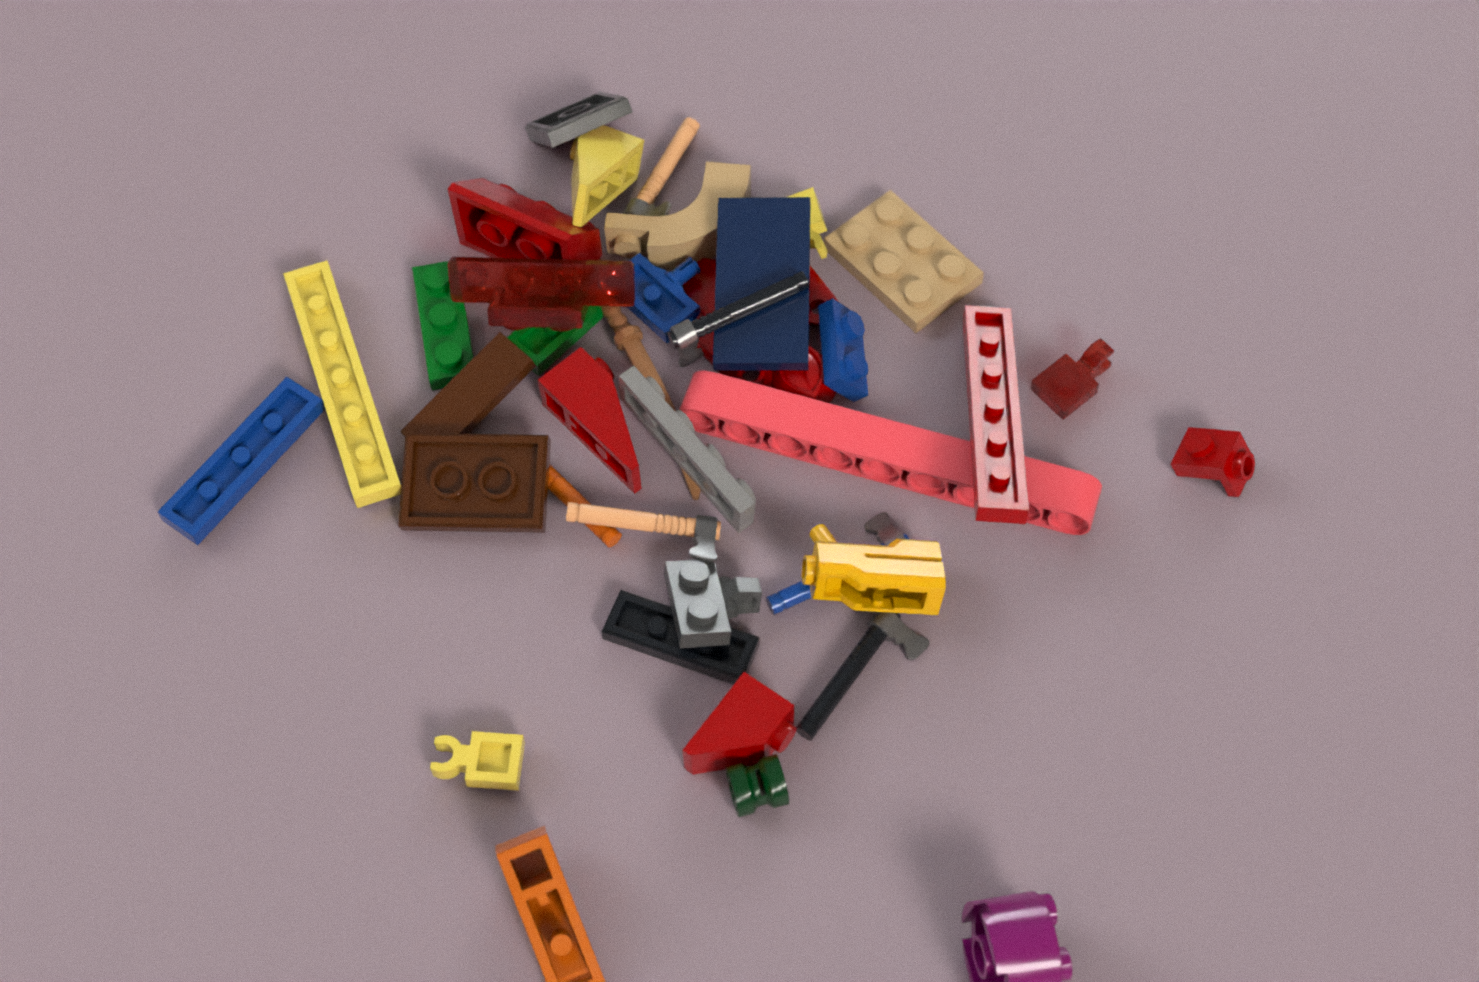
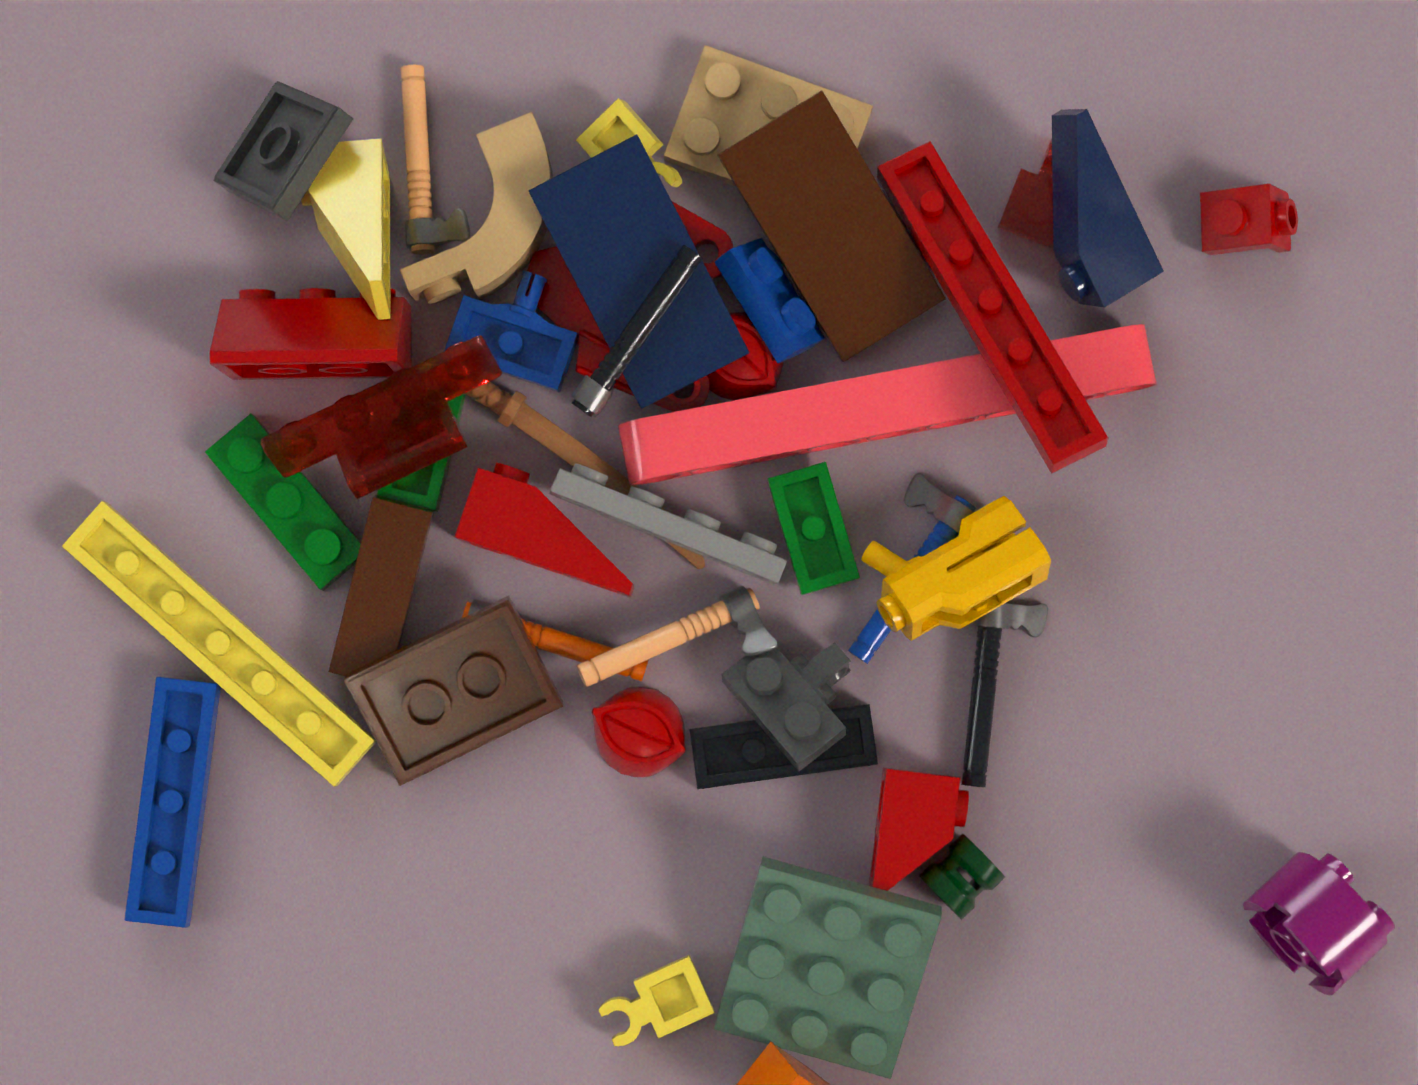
camera: 30 degrees left, 25 degrees up
(584, 577) = (639, 731): none -> red hat
(618, 793) = (827, 967): none -> sand green plate
(787, 504) = (813, 528): none -> green plate
(912, 324) = (831, 226): none -> reddish brown tile
(1098, 408) = (1094, 222): none -> dark blue slope

